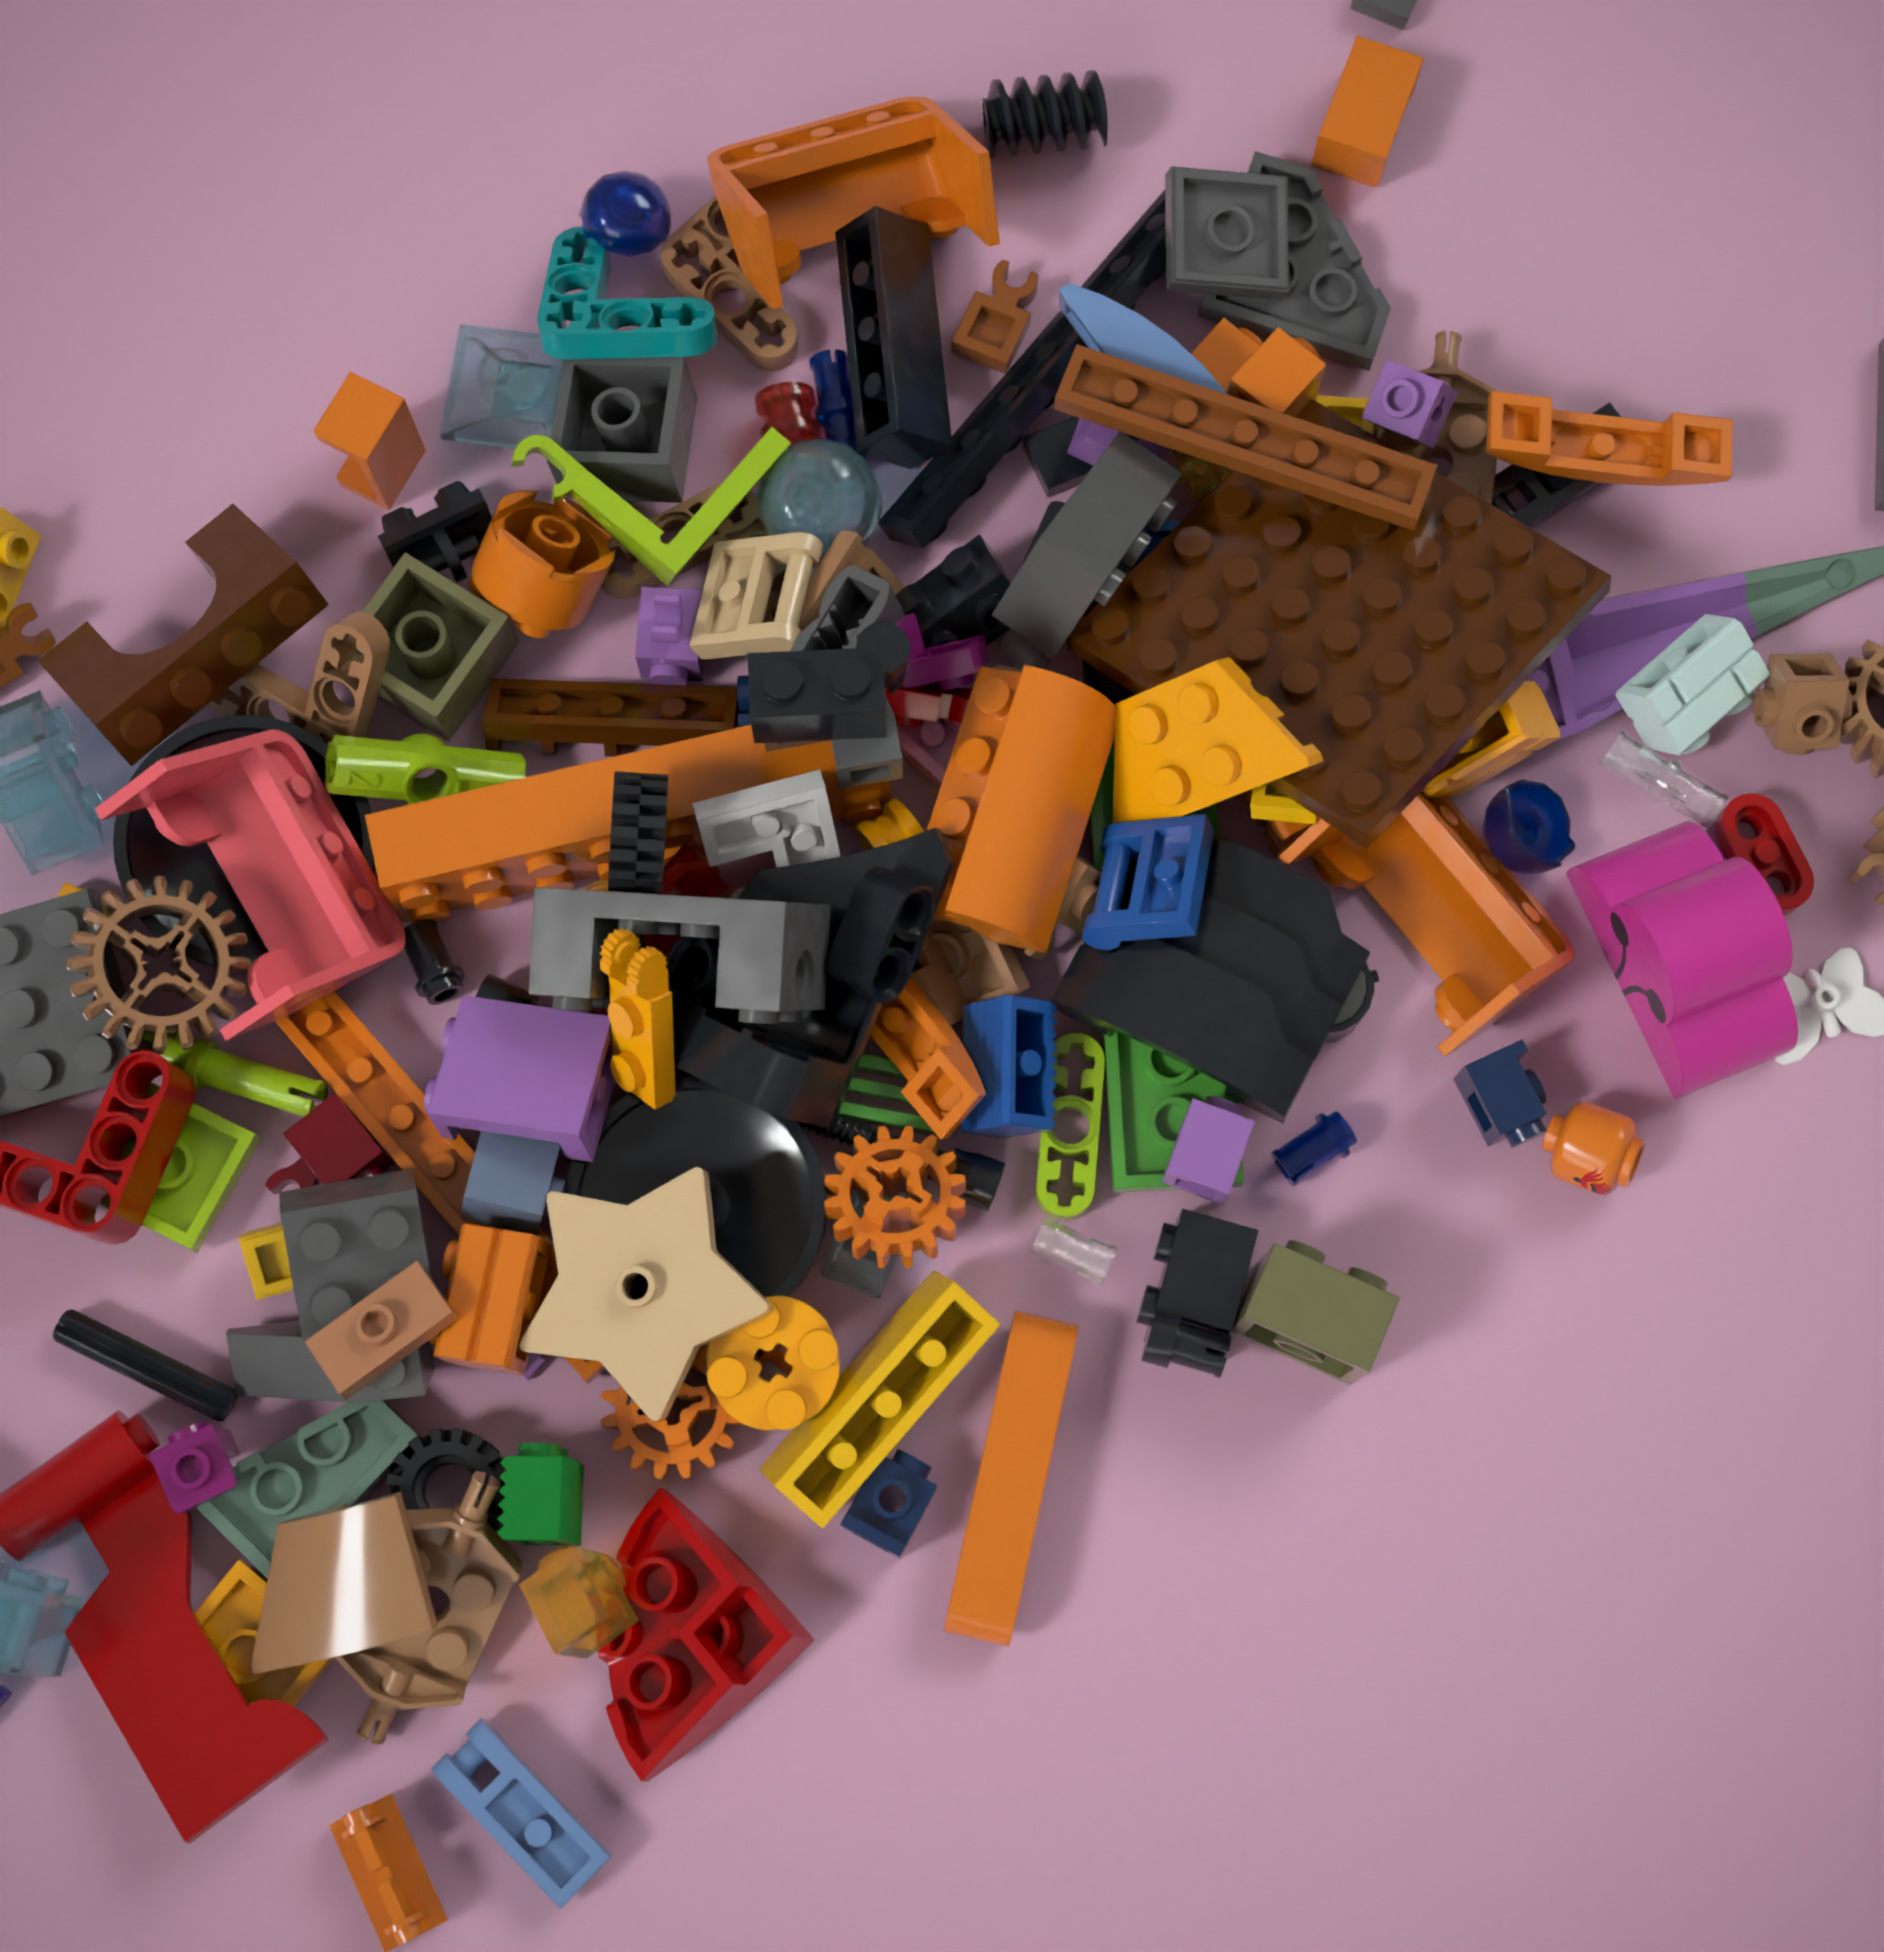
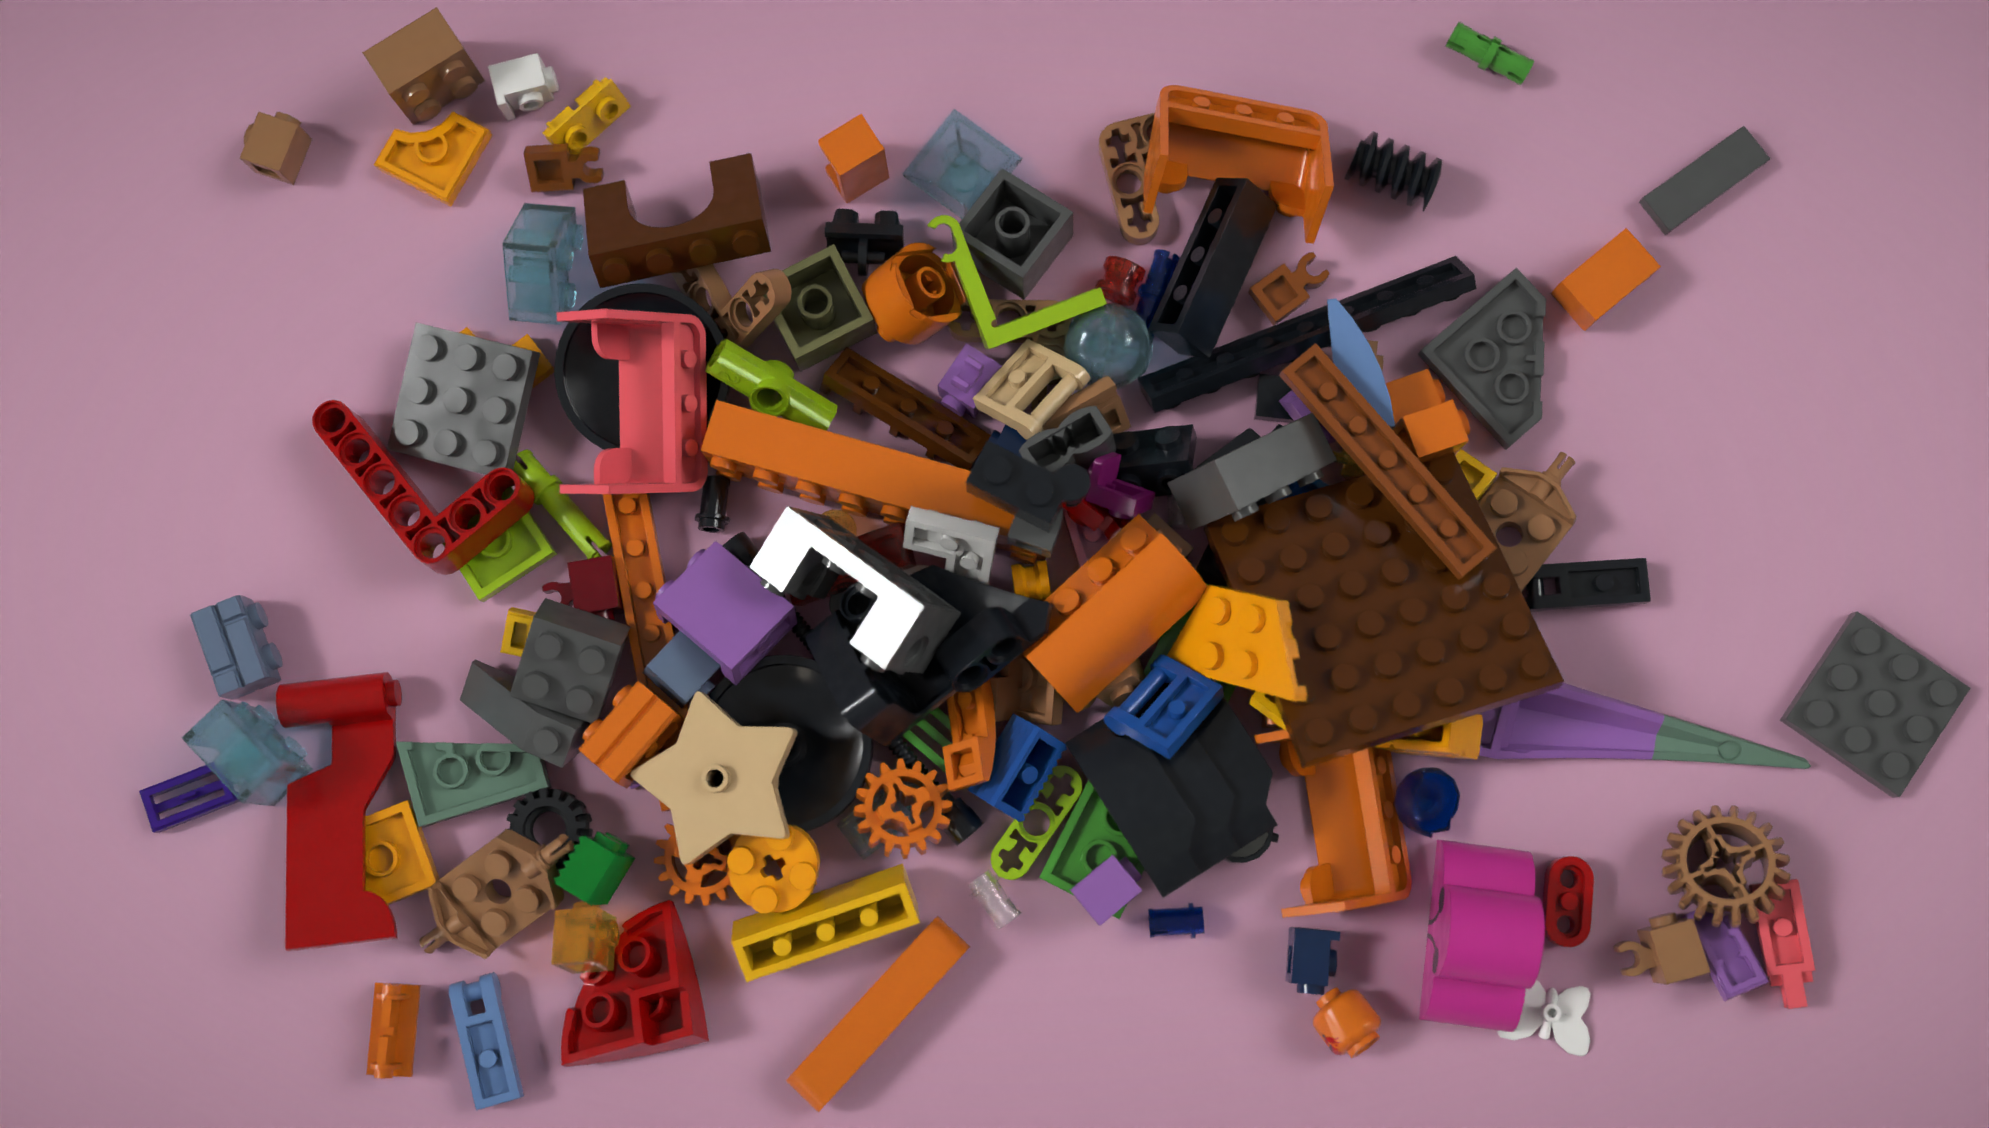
camera: 35 degrees right, 5 degrees up
(134, 944) = (531, 387): medium nougat gear -> none
(145, 1365) = (417, 652): black axle -> none
(196, 1465) = (411, 732): magenta bracket -> none
(341, 1585) = (452, 854): medium nougat slope -> none
(381, 1330) = (555, 718): nougat plate -> none
(626, 213) = (1093, 95): clear blue hair -> none
(638, 832) = (866, 507): black tyre -> none
(640, 1018) = (806, 619): light orange hinge -> none
(666, 324) = (1034, 155): teal beam -> none
(891, 1529) = (784, 1001): dark blue brick -> none
(1197, 1291) = (1050, 971): black hinge -> none
(1226, 233) = (1463, 314): dark grey plate -> none
(1316, 1311) = (1112, 1025): olive brick -> none
(1410, 404) = (1511, 492): medium lavender brick -> none
(1608, 448) = (1624, 587): orange slope -> none
(1664, 780) = (1533, 818): clear pin -> none
(1693, 685) = (1586, 770): light aqua brick -> none
(1803, 702) = (1650, 821): medium nougat brick -> none

